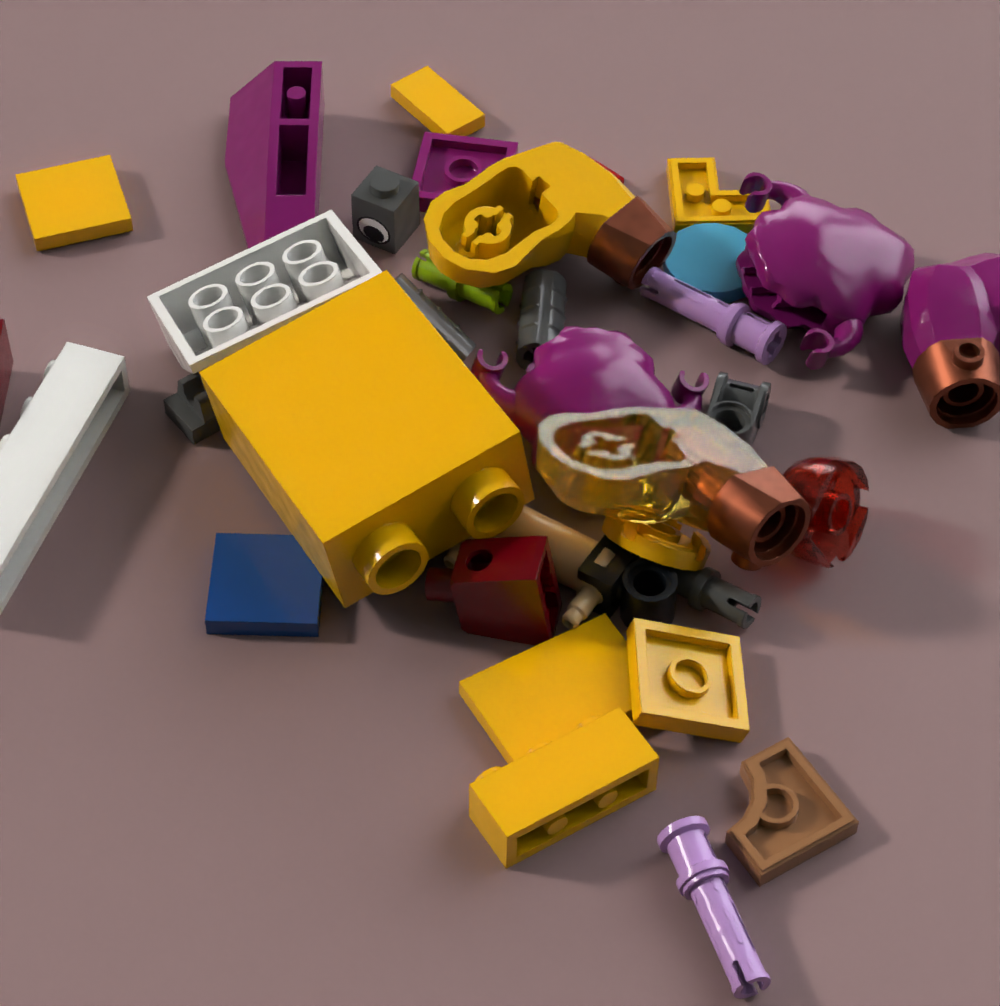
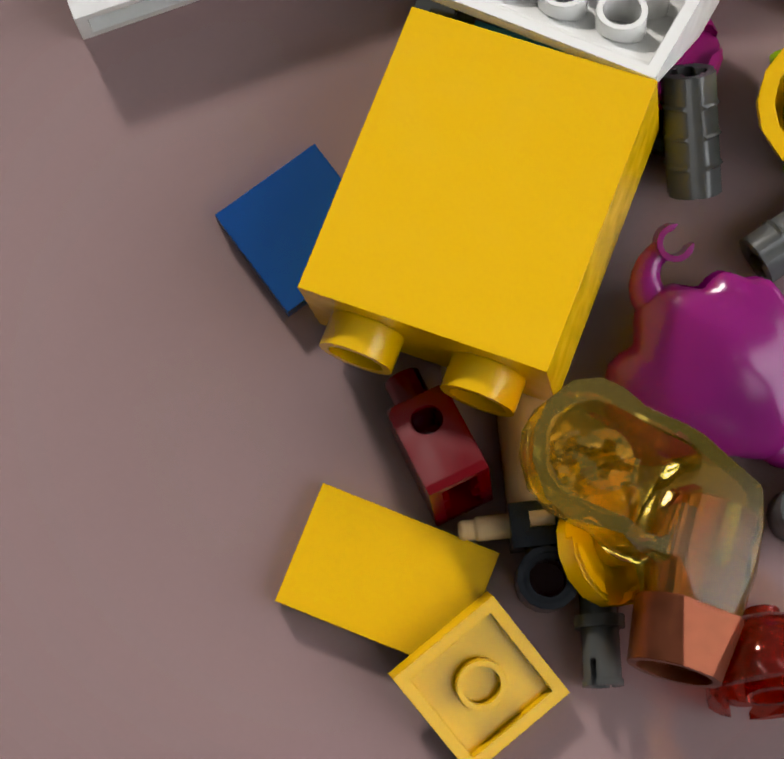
camera: 55 degrees right, 30 degrees up
(562, 786) = (280, 655): yellow brick -> none

